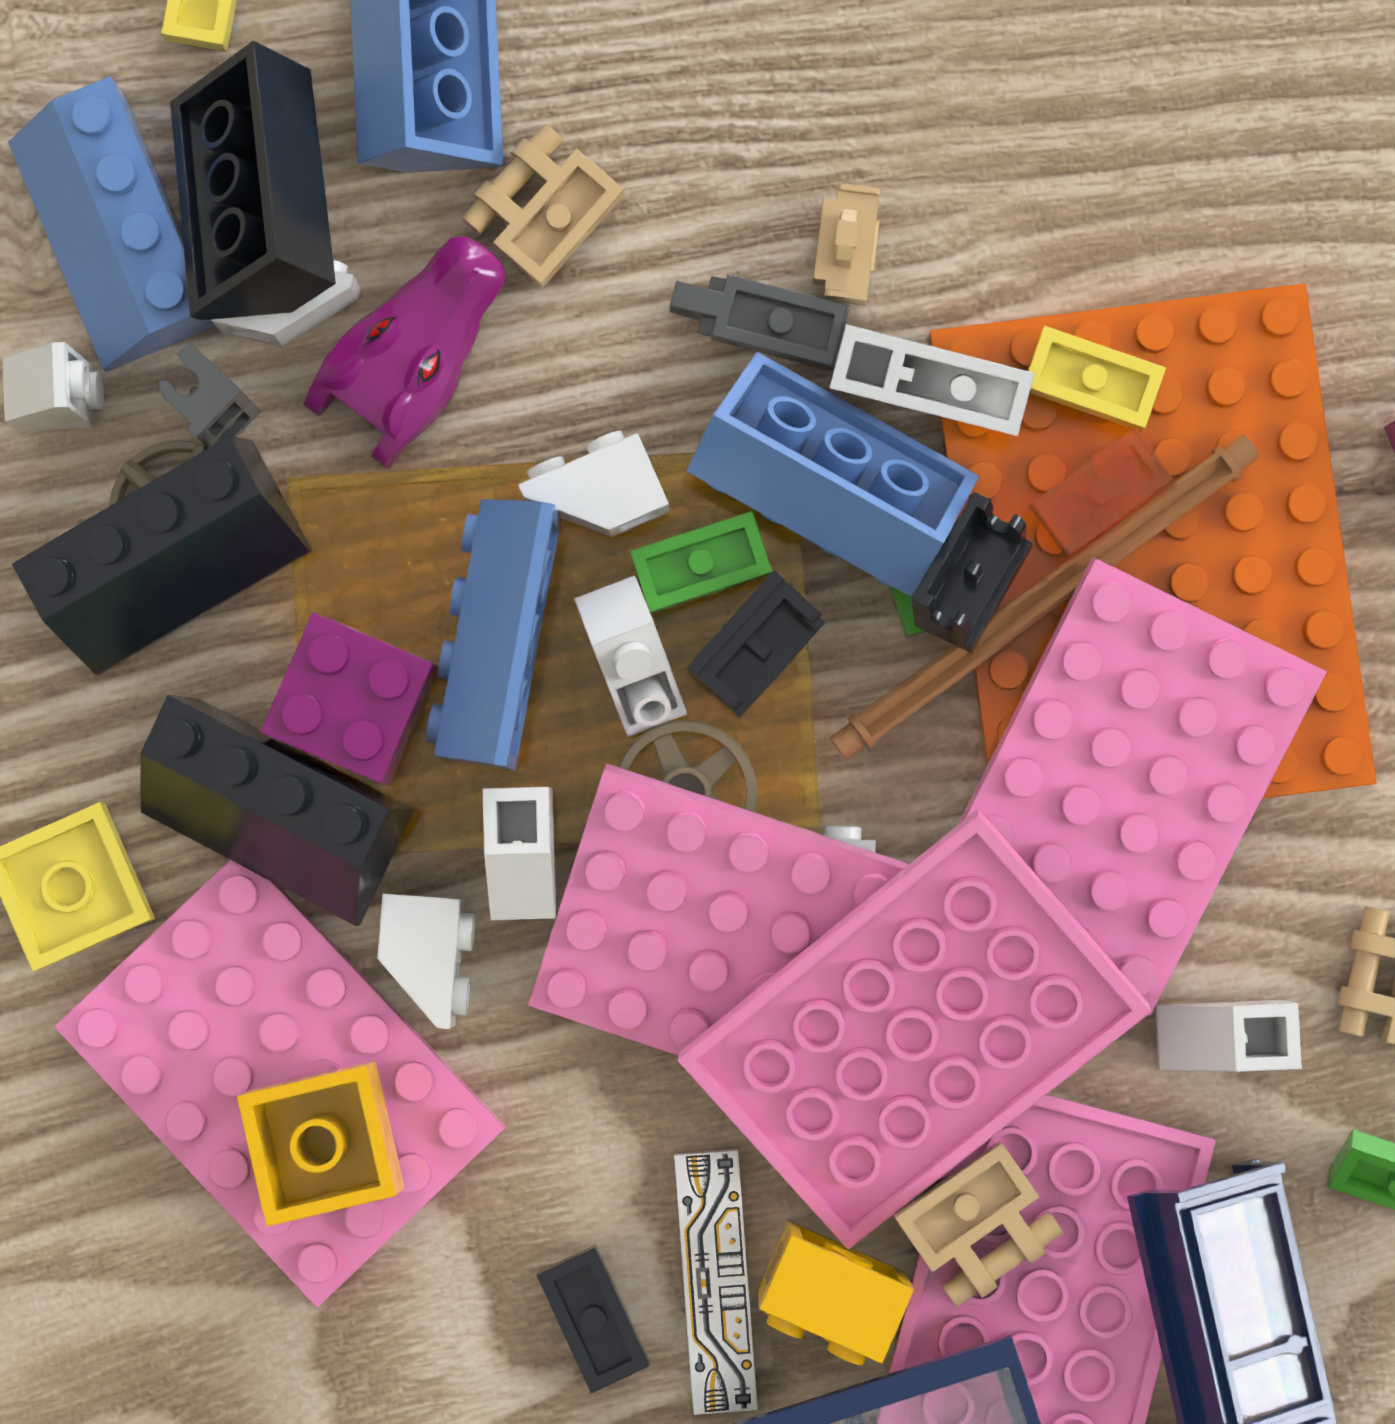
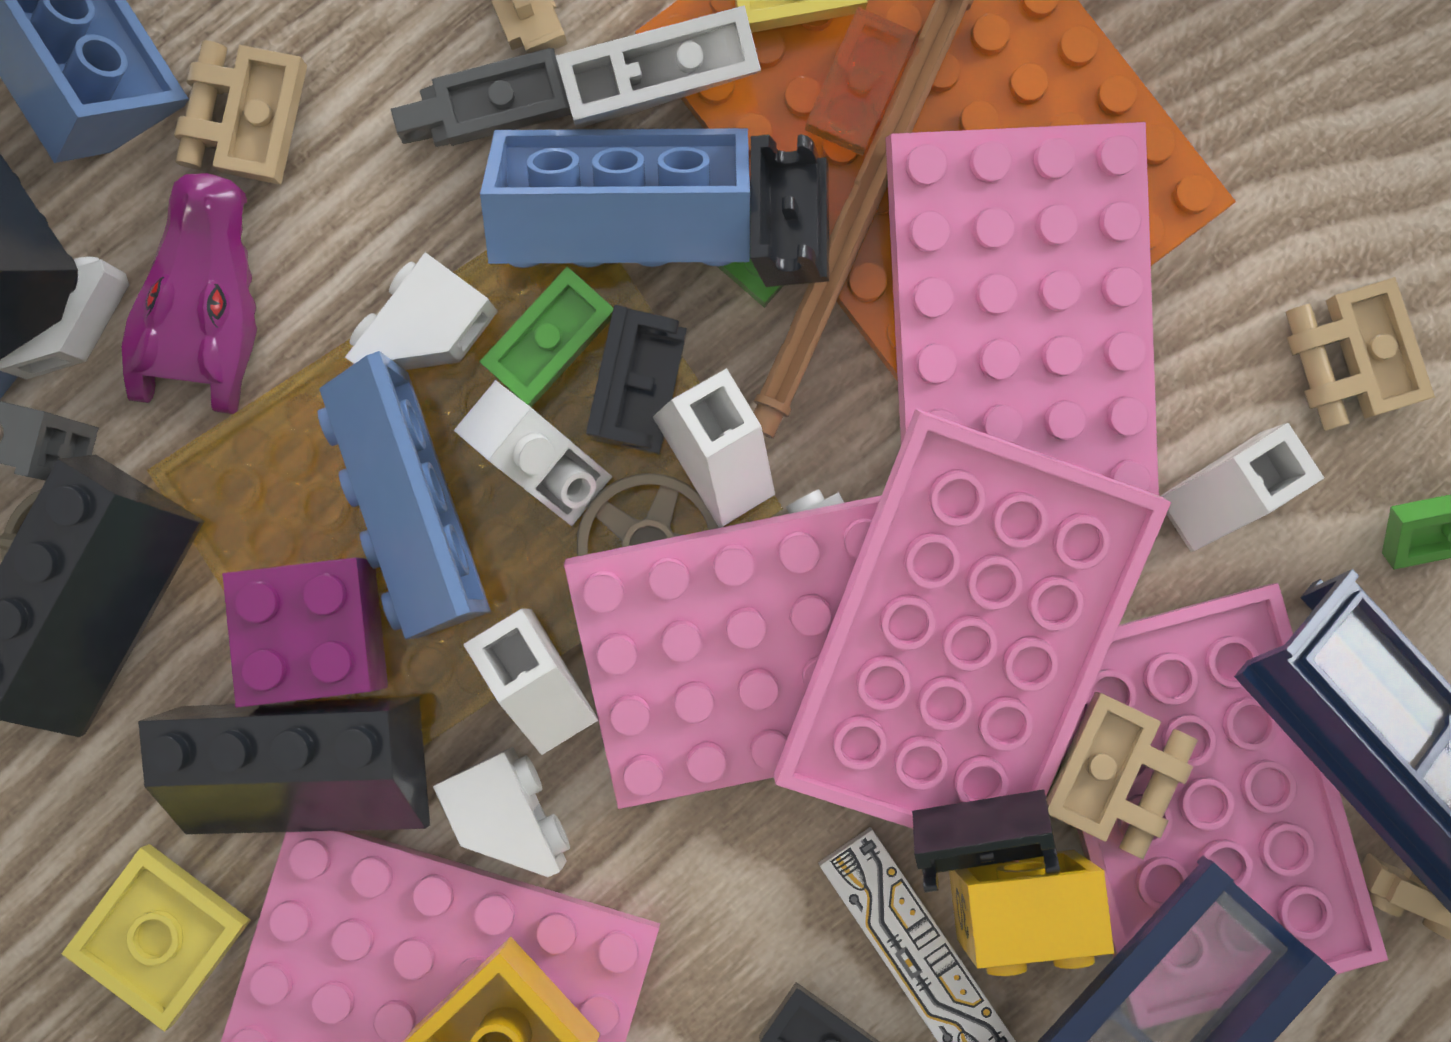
camera: 30 degrees left, 0 degrees up
(794, 744) = (719, 446): none -> white slope
(830, 1205) = (983, 835): none -> black hinge

